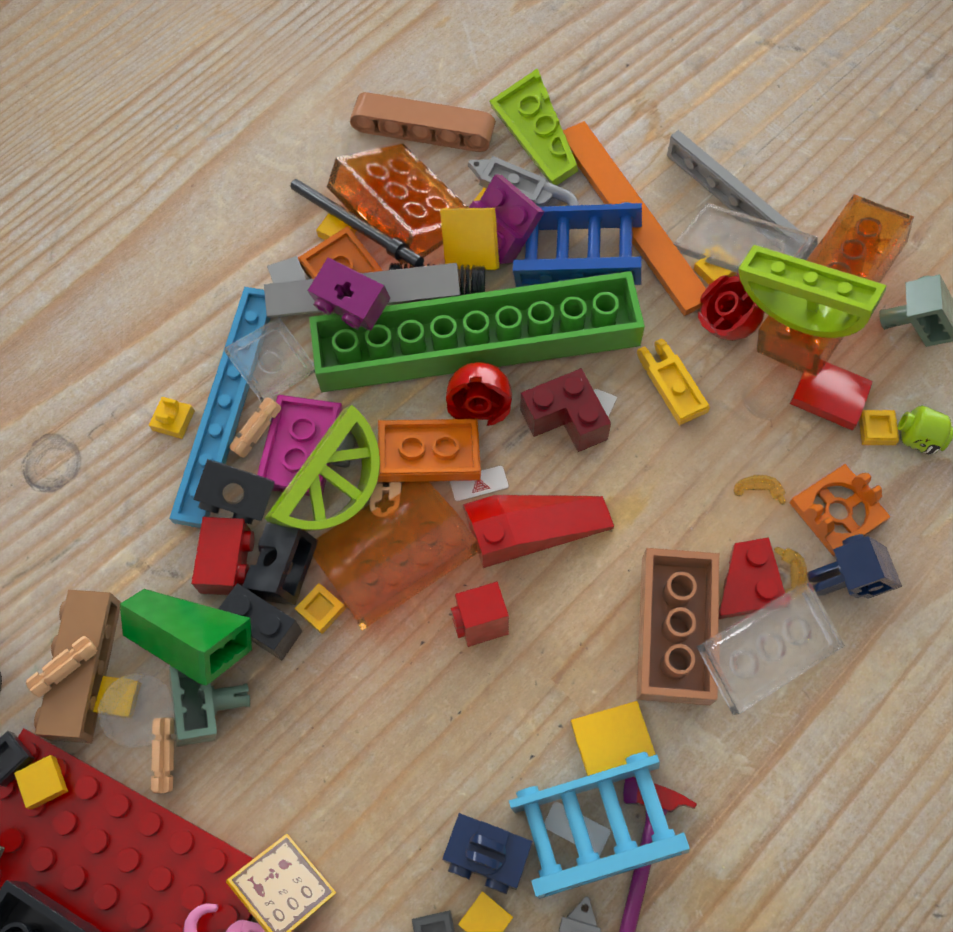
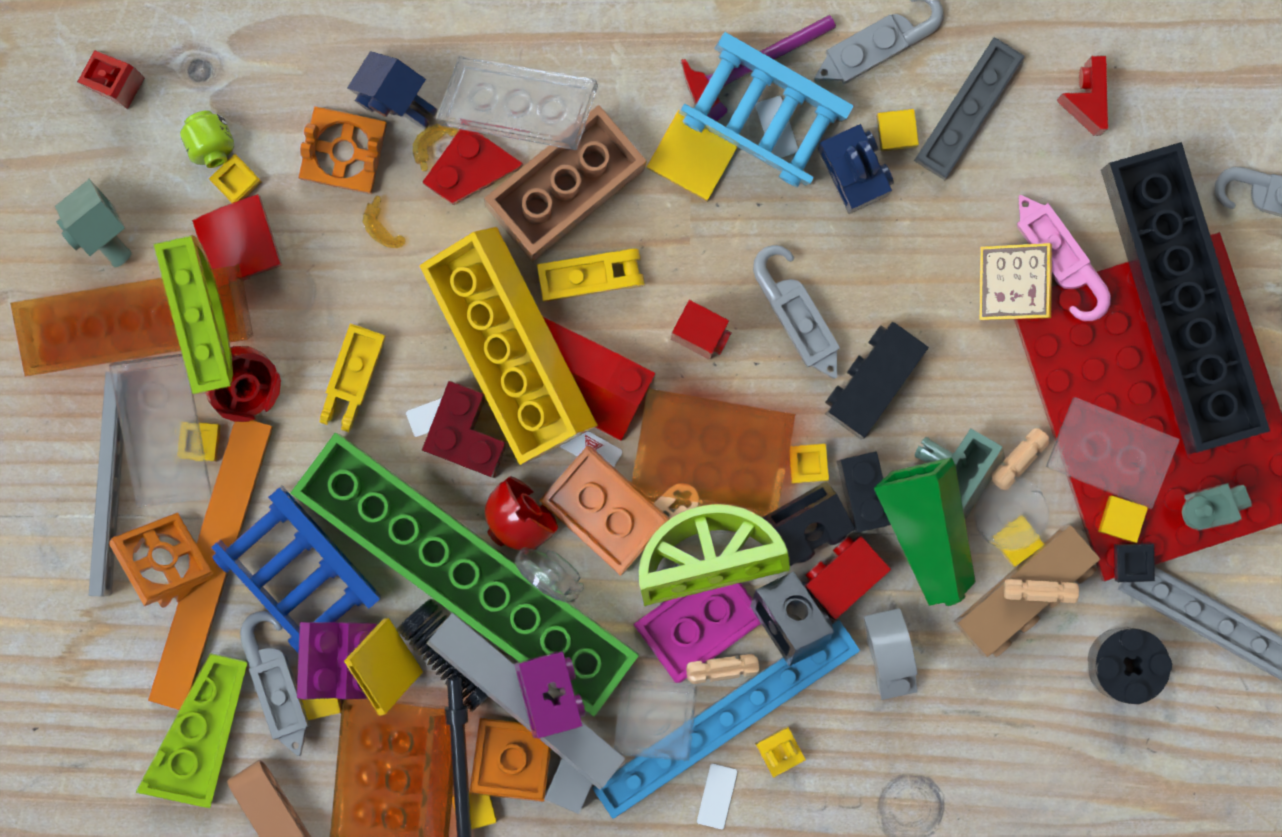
camera: 140 degrees left, 20 degrees up
(89, 825) = (1112, 453): none -> clear tile
(146, 535) = (891, 653): none -> light grey brick
(191, 361) = (717, 796): none -> white sticker
(324, 708) = (875, 379): none -> black brick
(422, 374) = (550, 574): none -> clear tile
(425, 700) = (797, 314): none -> light grey plate
(595, 585) = (589, 275): none -> yellow plate
(599, 481) = (507, 344): none -> yellow brick
(690, 166) = (149, 592): none -> orange piece

